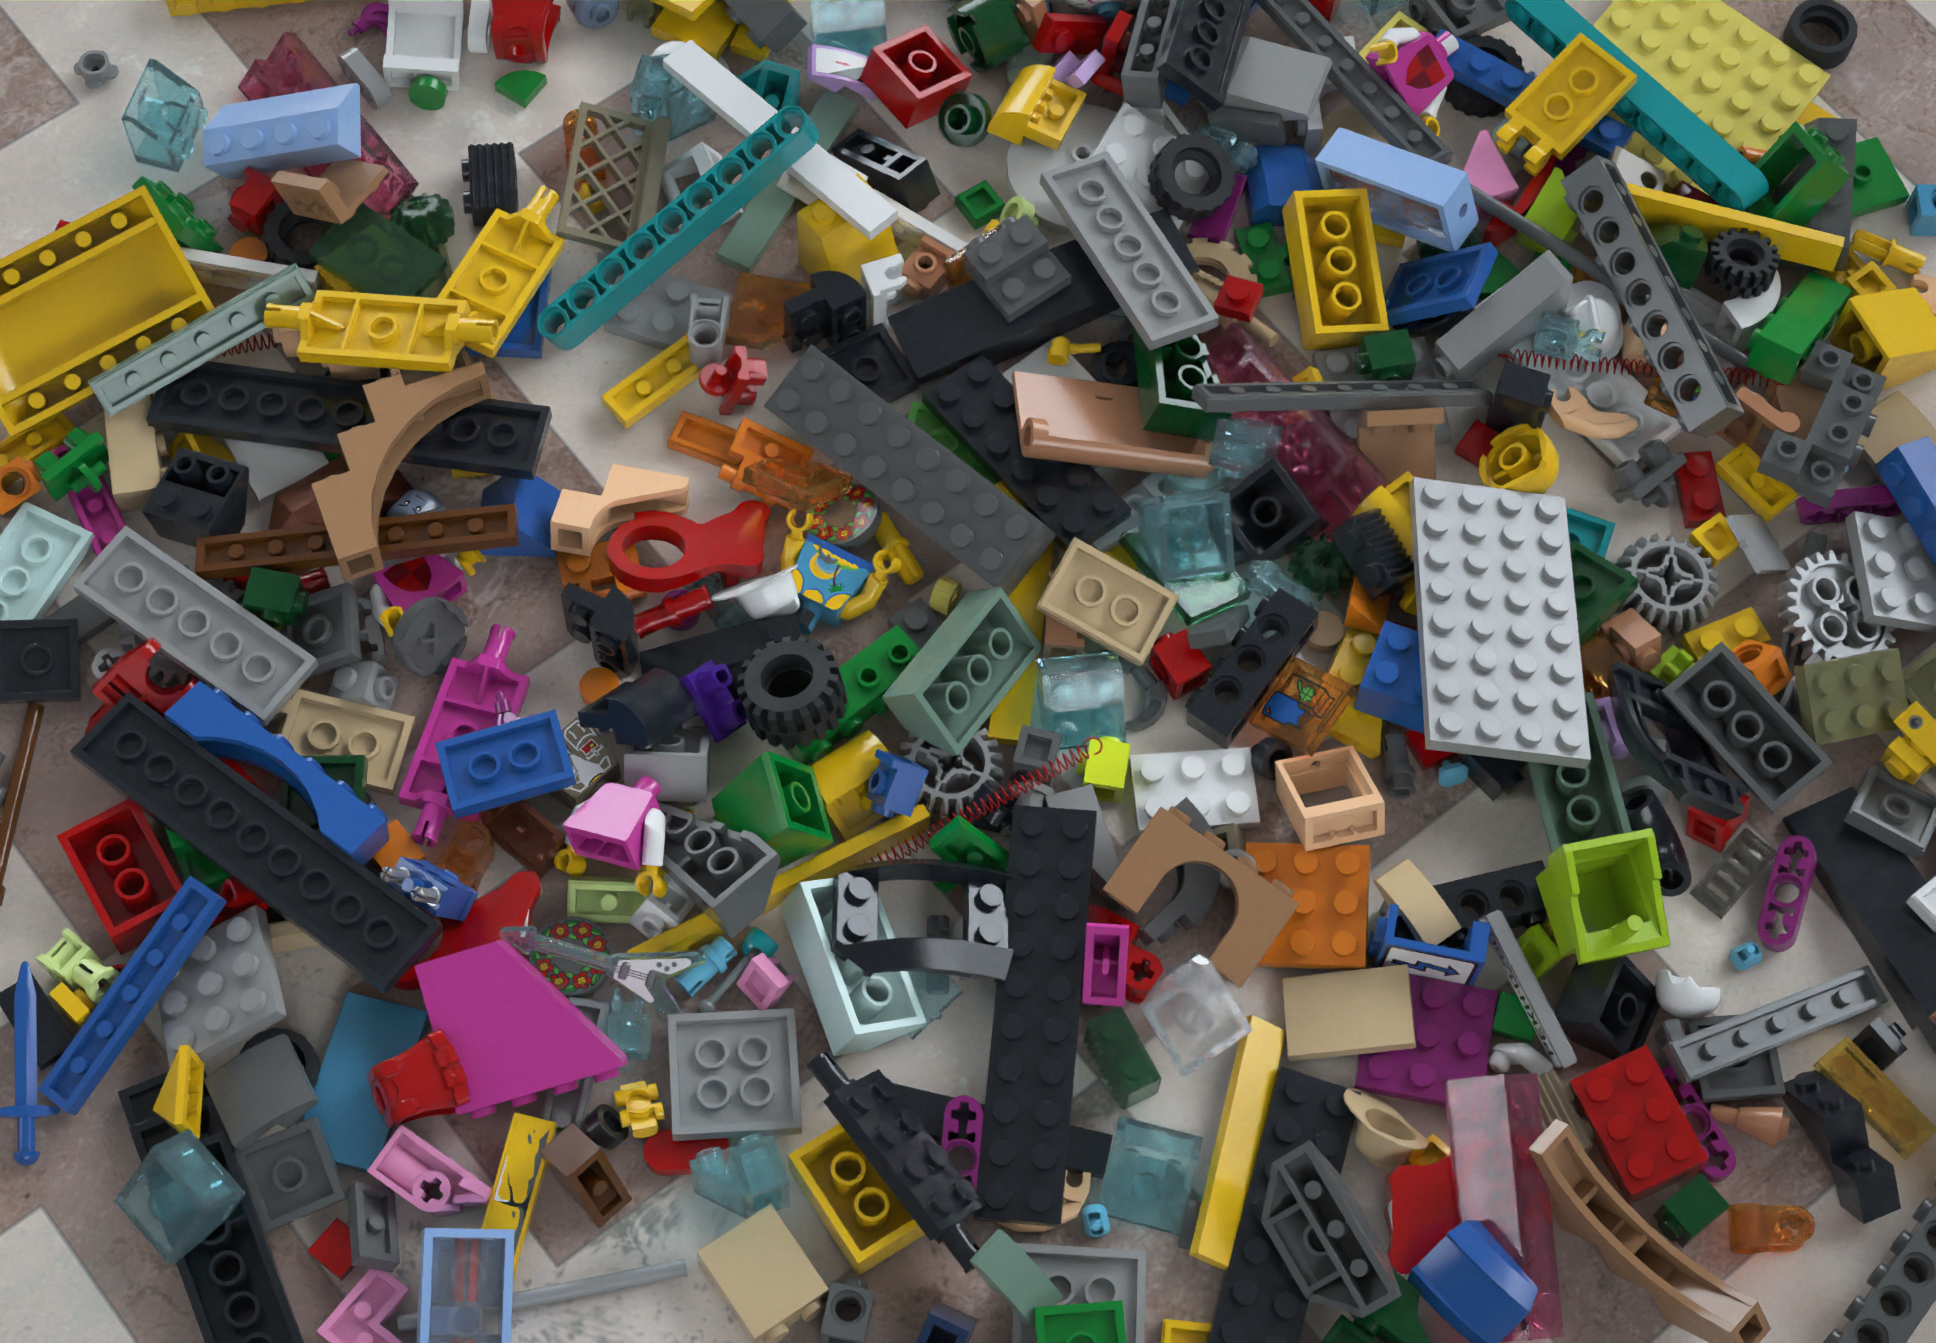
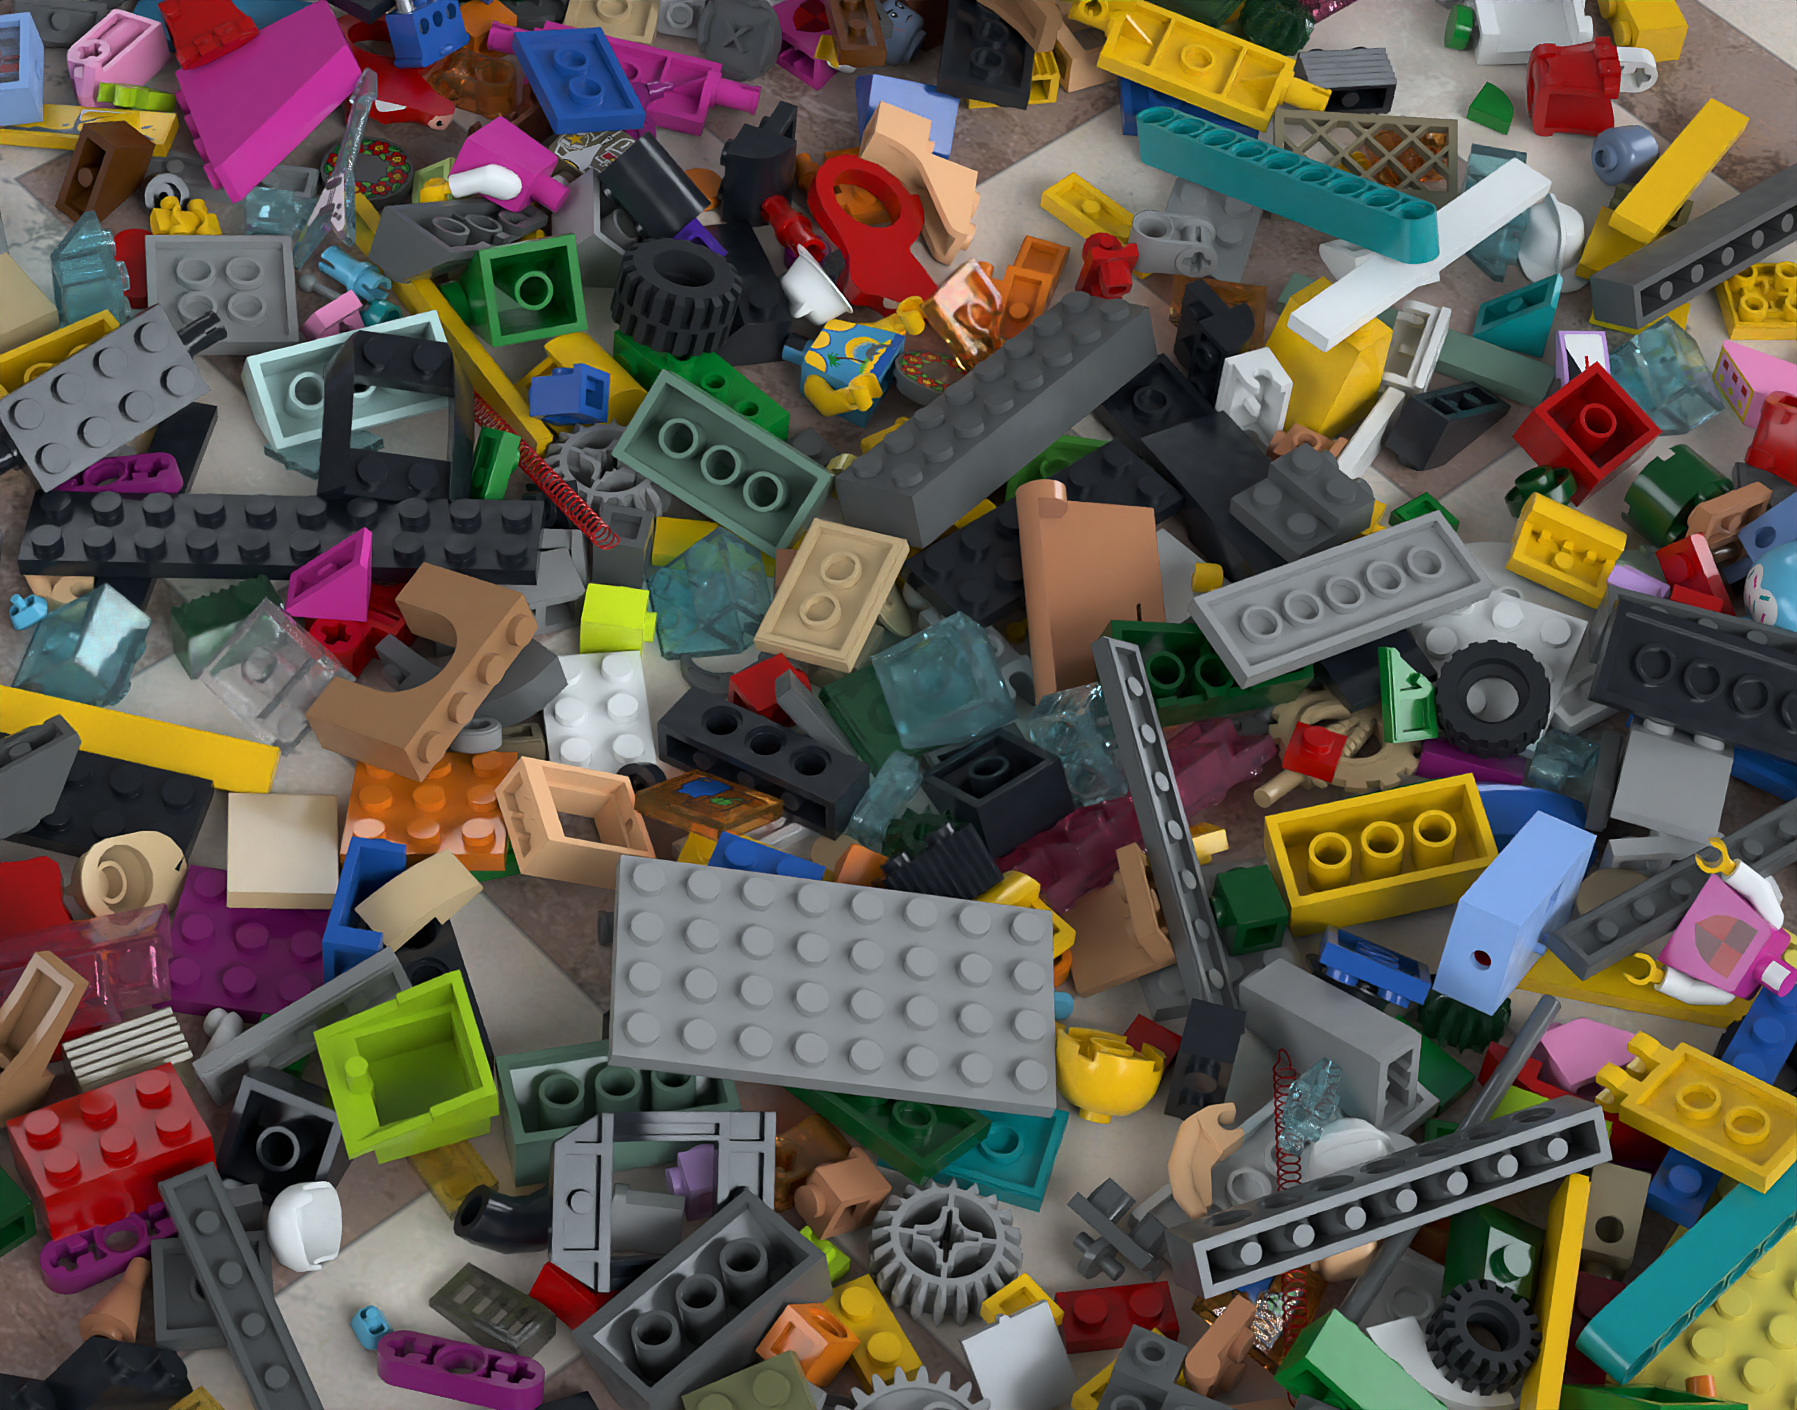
camera: 85 degrees right, 15 degrees down
(479, 1151) = (136, 97): none -> lime plate
(1193, 233) = (1406, 700): none -> green tile

